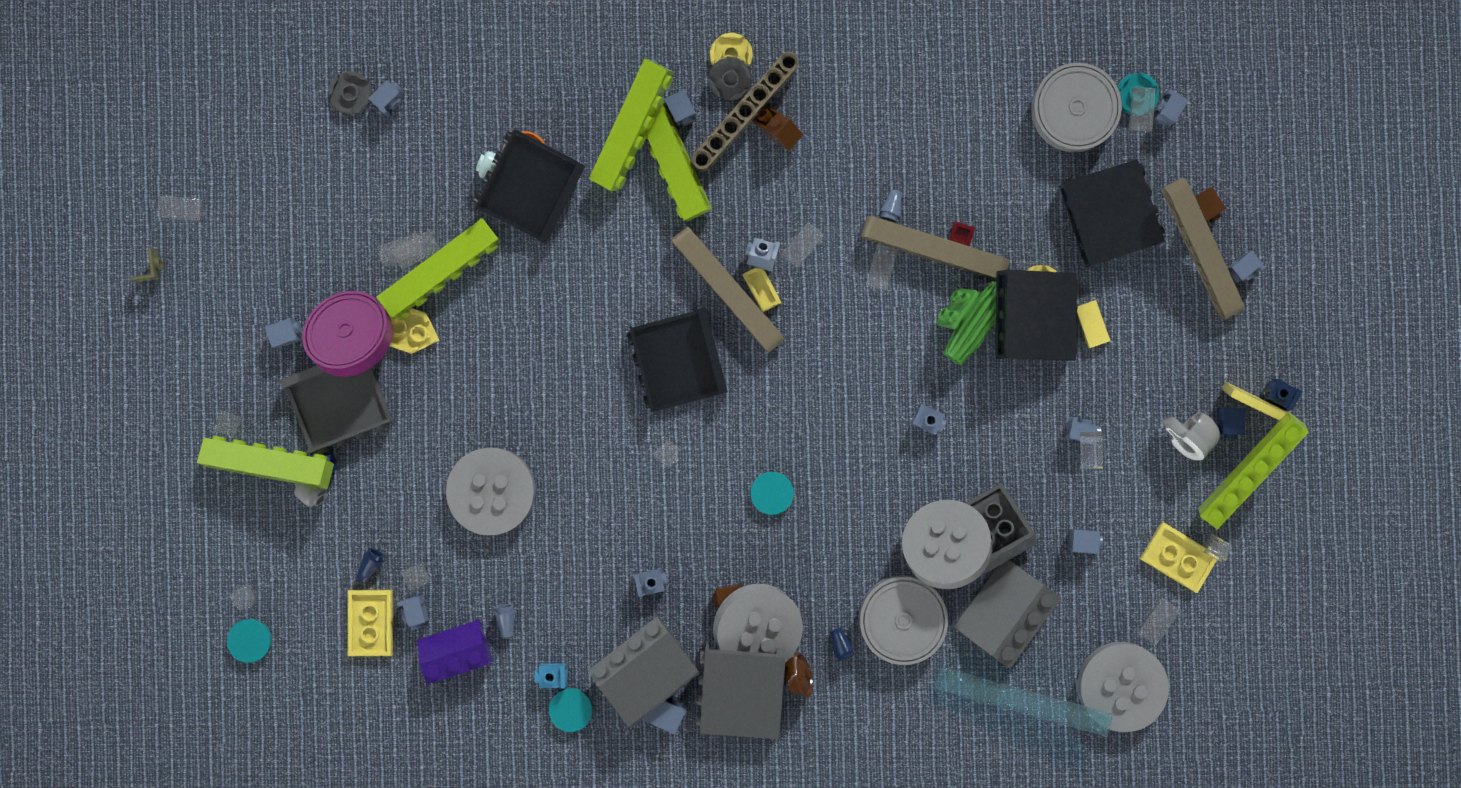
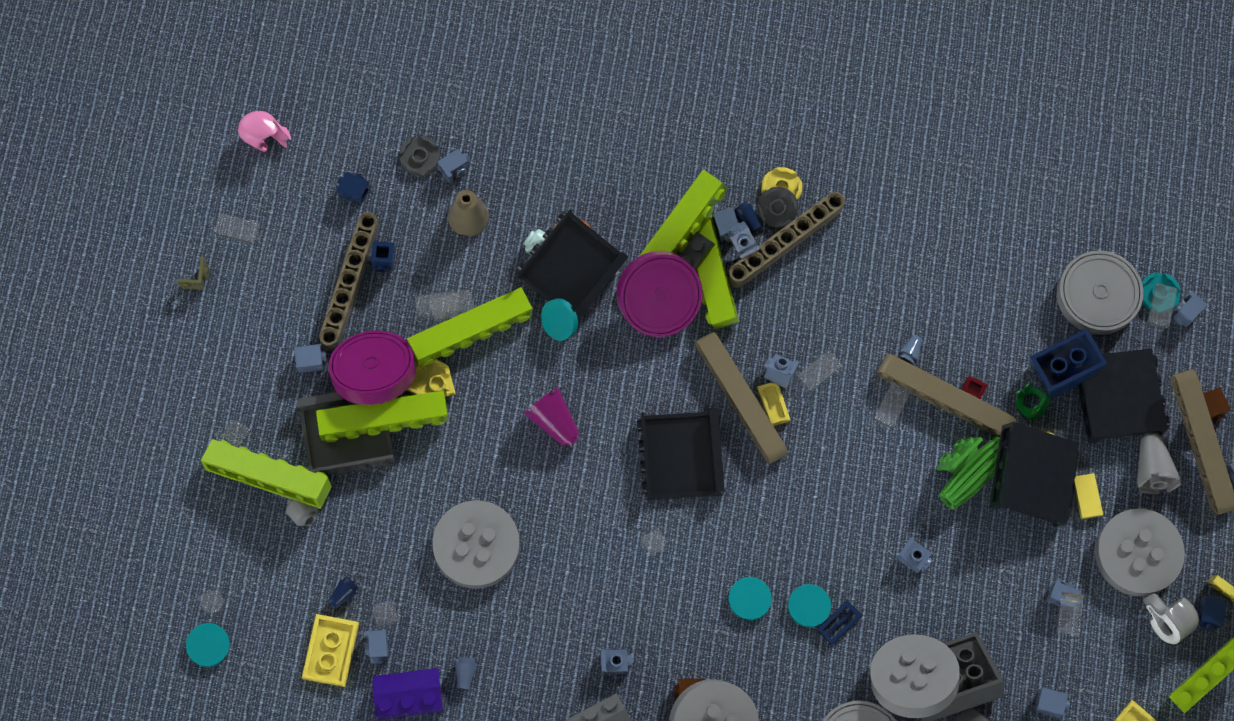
camera: 10 degrees right, 15 degrees down
(175, 95) = (260, 125): none -> bright pink helmet
(288, 142) = (353, 187): none -> dark blue brick
(302, 233) = (349, 271): none -> dark tan beam
(334, 211) = (383, 256): none -> dark blue brick
(380, 378) = (391, 415): none -> lime brick
(413, 148) = (468, 214): none -> dark tan cone
(527, 244) = (559, 319): none -> teal tile
(543, 348) = (554, 418): none -> magenta cone
(624, 199) = (659, 293): none -> magenta brick
(652, 149) = (697, 250): none -> pearl dark grey plate
(699, 93) = (746, 213): none -> dark blue cone
(699, 123) = (742, 239): none -> sand blue brick
(778, 127) = (815, 259): reddish brown slope -> none
(831, 488) = (809, 605): none -> teal tile
(874, 485) = (826, 636): none -> dark blue tile
(1025, 248) = (1038, 410): none -> green piece
(1054, 192) = (1067, 363): none -> dark blue slope
(1152, 372) = (1139, 552): none -> light grey brick
(1157, 281) = (1156, 466): none -> light grey cone

